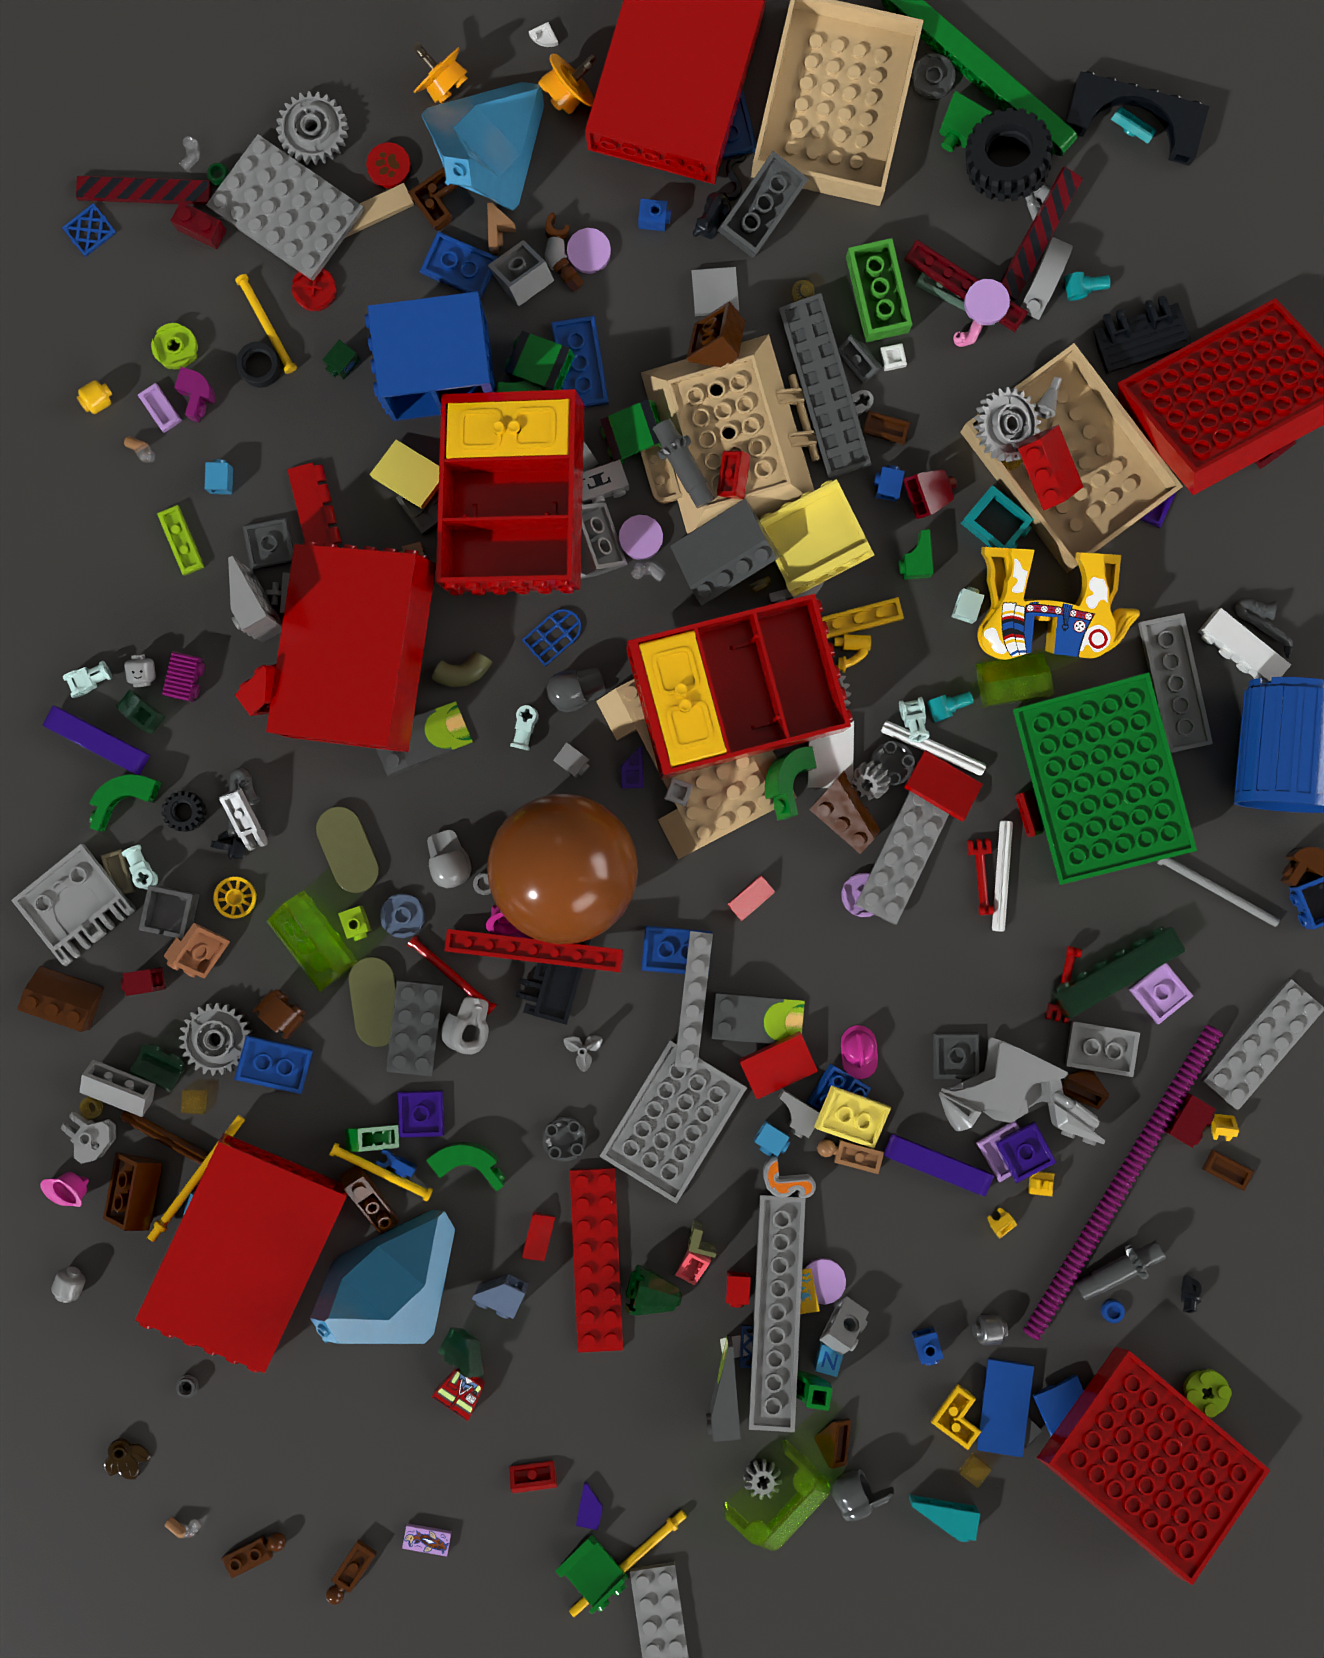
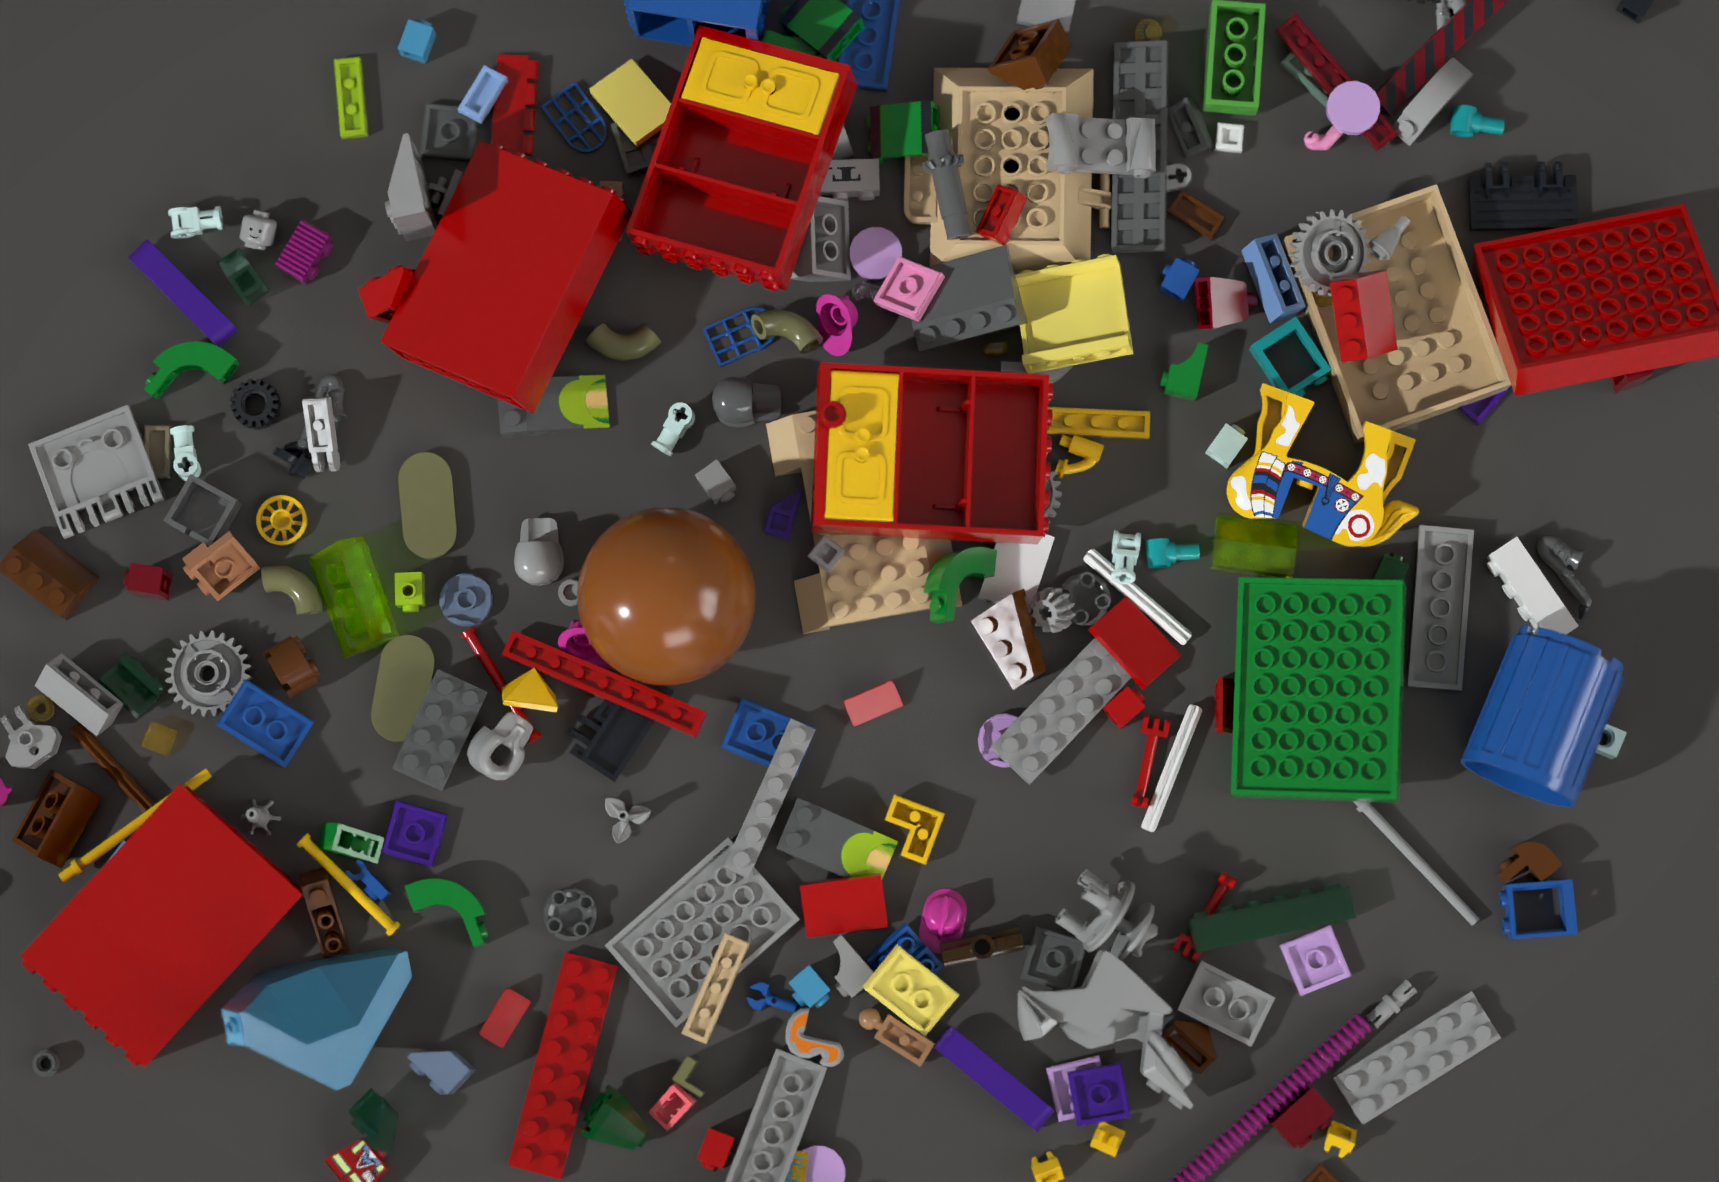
camera: 20 degrees right, 5 degrees down
(261, 946) = (295, 584): none -> olive cylinder
(285, 505) = (482, 94): none -> light blue tile
(293, 1139) = (259, 817): none -> light grey piece
(365, 494) = (565, 116): none -> blue window
(476, 975) = (529, 692): none -> yellow slope
(589, 616) = (788, 325): none -> olive cylinder
(626, 602) = (835, 322): none -> dark pink piece
(651, 680) = (832, 414): none -> red plate
(677, 557) = (908, 288): none -> bright pink tile
(698, 1163) = (715, 988): none -> tan tile
(743, 1156) = (770, 999): none -> blue bar
(796, 393) = (1101, 145): none -> light grey piece
(821, 983) = (922, 823): none -> yellow brick
(910, 1057) = (1000, 943): none -> dark brown piece
(951, 839) = (1124, 707): none -> red brick
(964, 459) = (1273, 278): none -> medium blue brick
(995, 1012) = (1110, 905): none -> light grey piece
(1127, 666) = (1391, 568): none -> dark green brick
(1231, 1008) = (1391, 1004): none -> light grey pin

